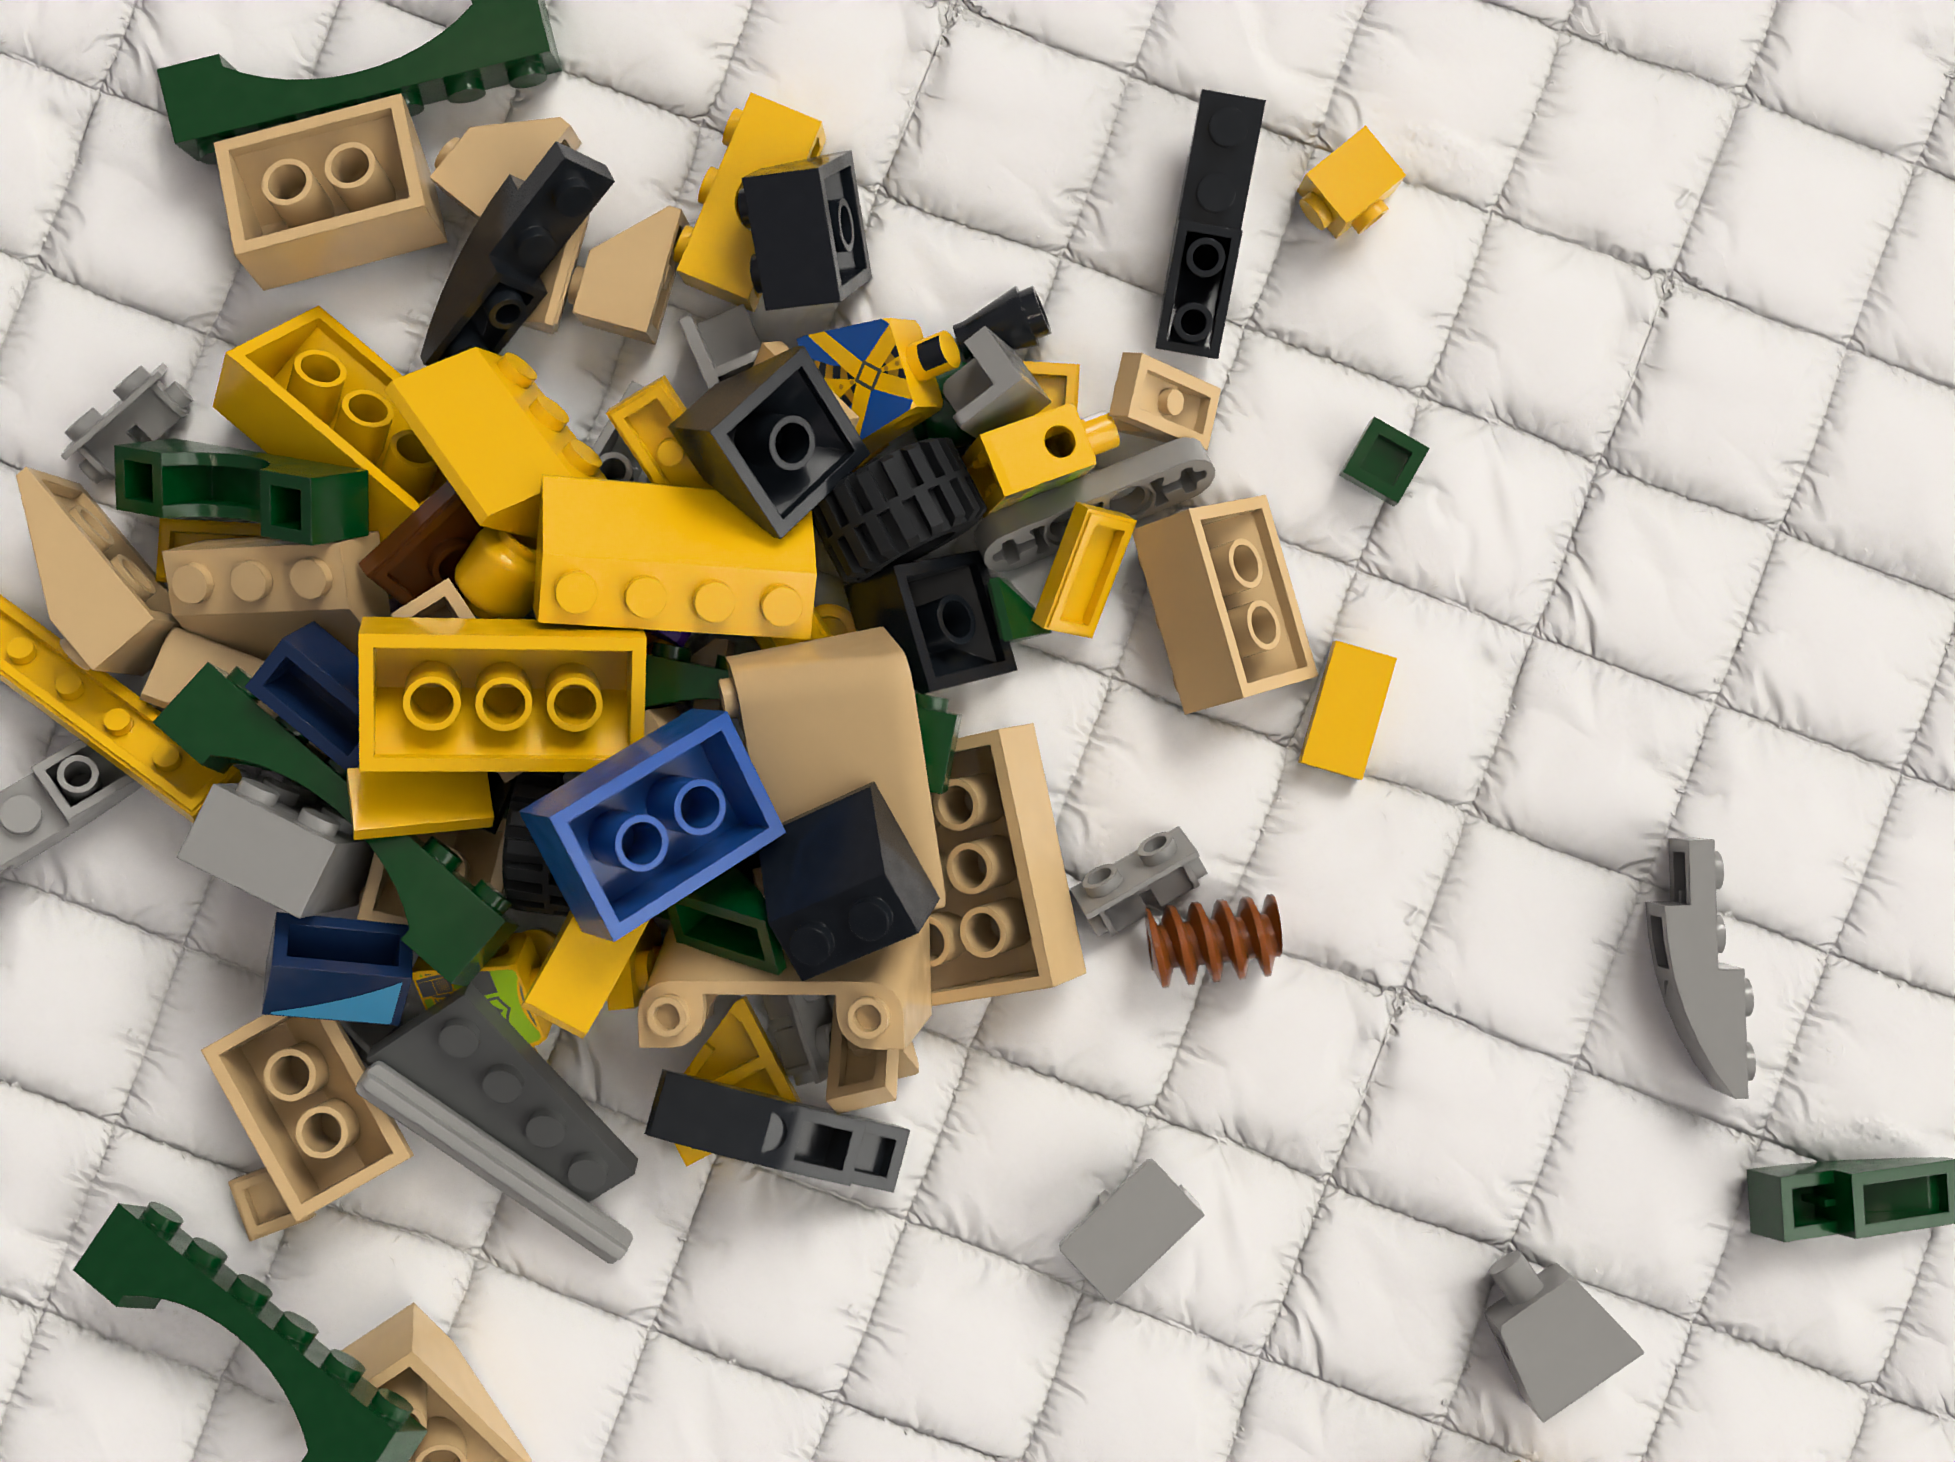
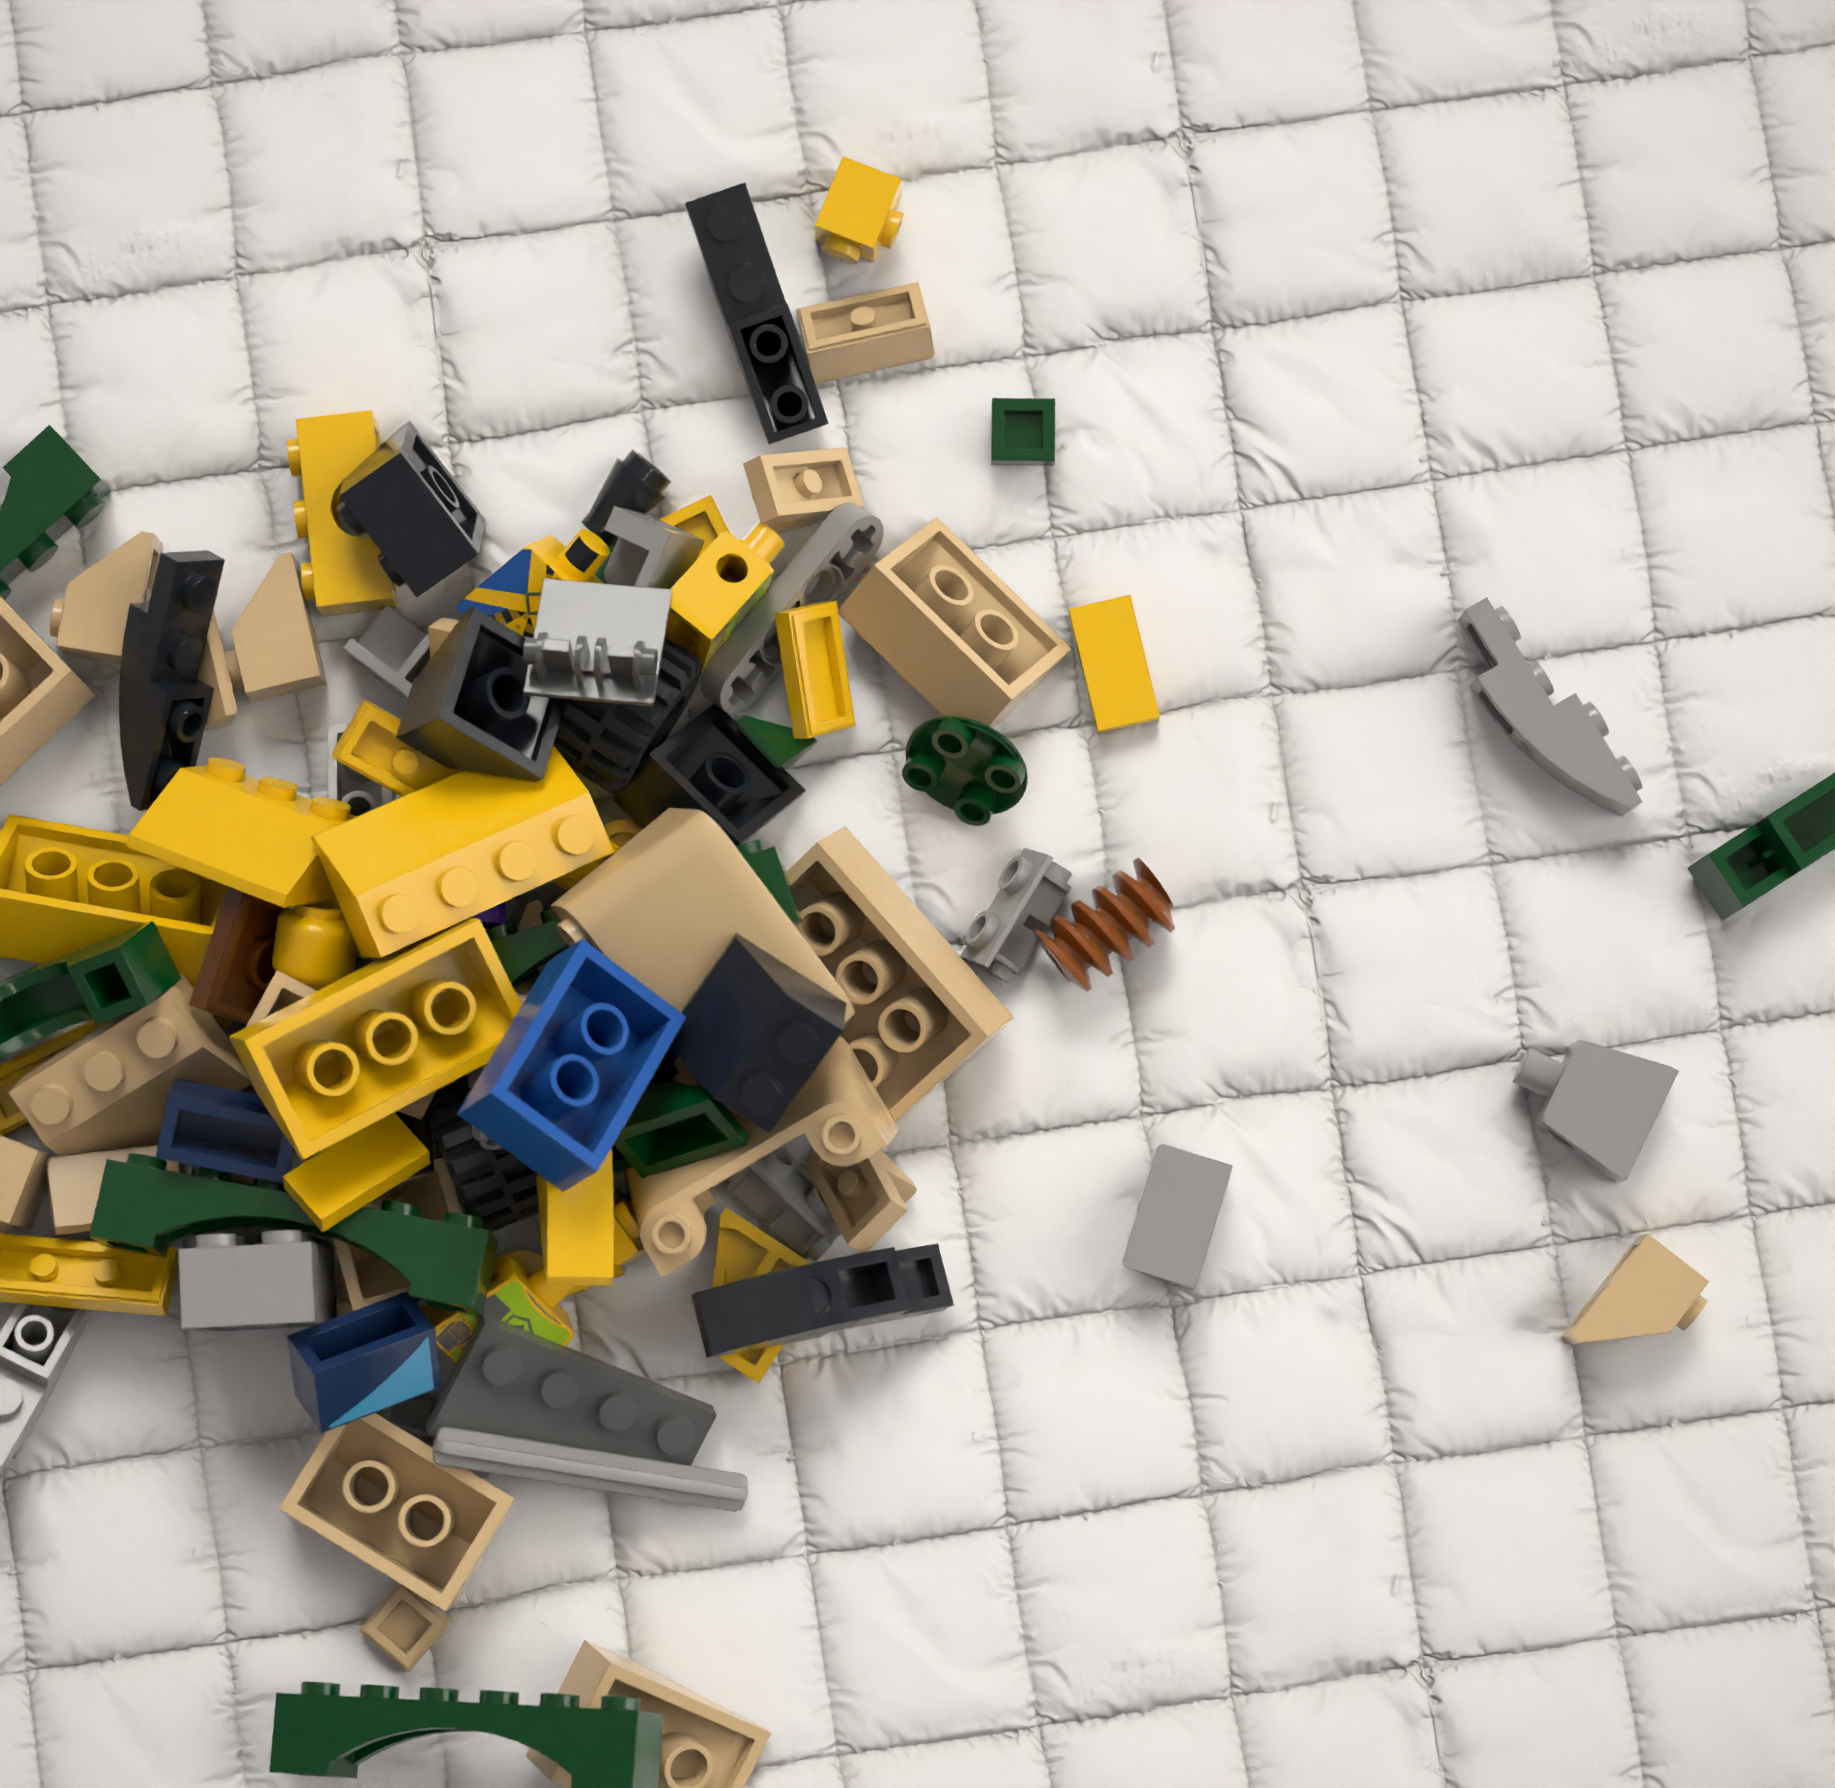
camera: 35 degrees left, 5 degrees down
(899, 442) = (597, 642): none -> hinge
(1167, 731) = (965, 767): none -> dark green dish
(1295, 297) = (866, 333): none -> tan slope

